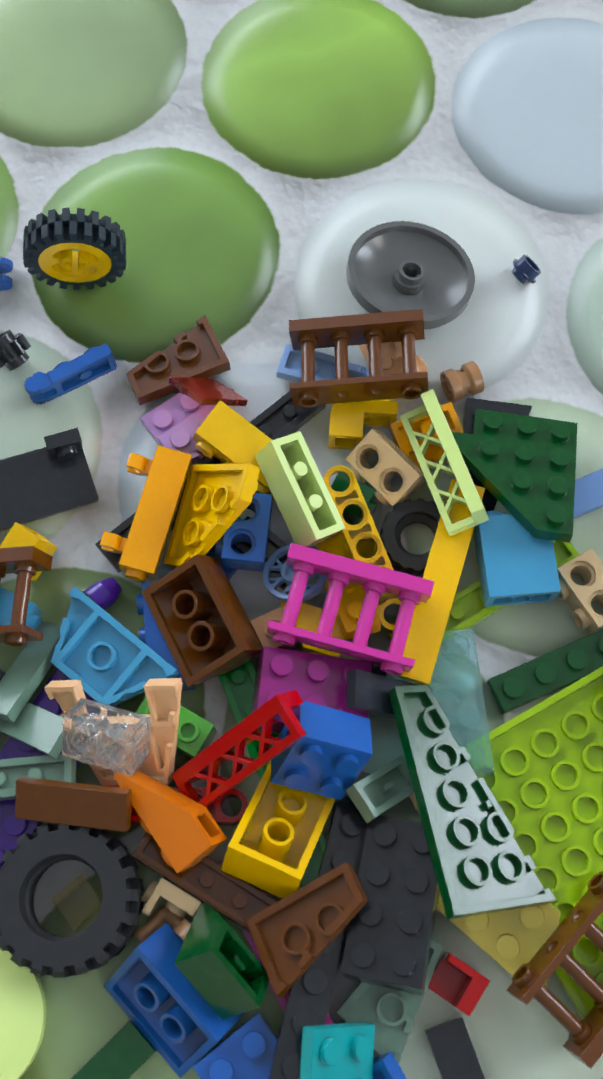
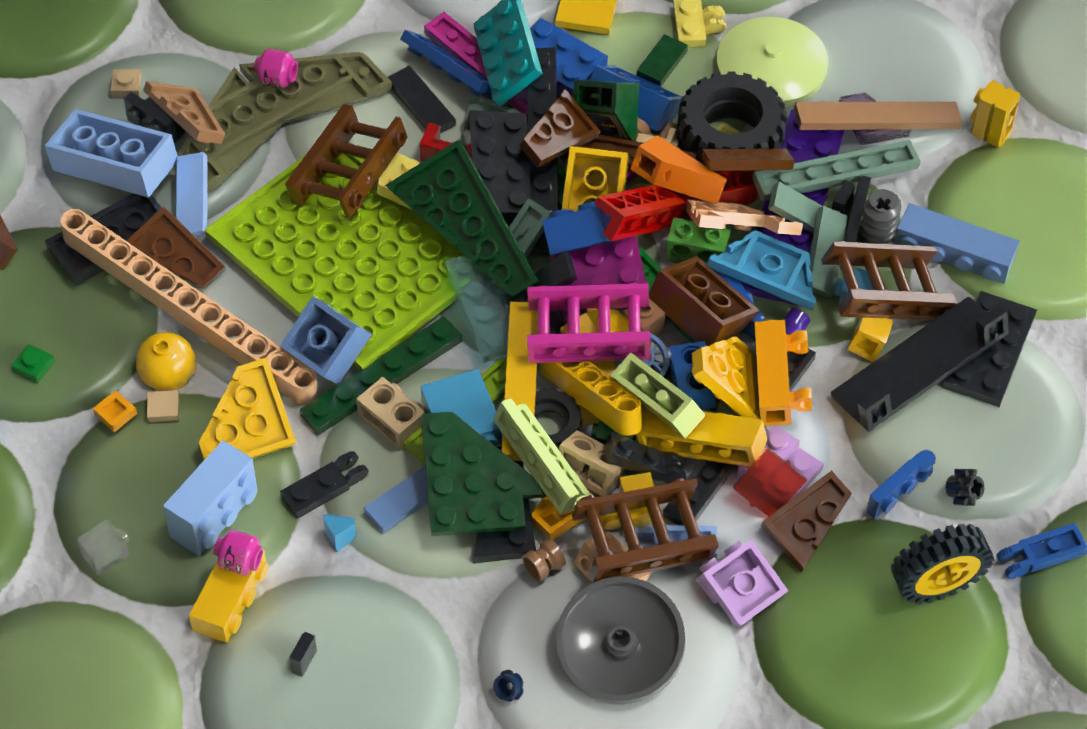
camera: 165 degrees right, 15 degrees down
(106, 736) = (741, 198): clear brick -> none
(269, 307) = (741, 582): none -> lavender plate
(340, 450) = (643, 459): none -> black hinge

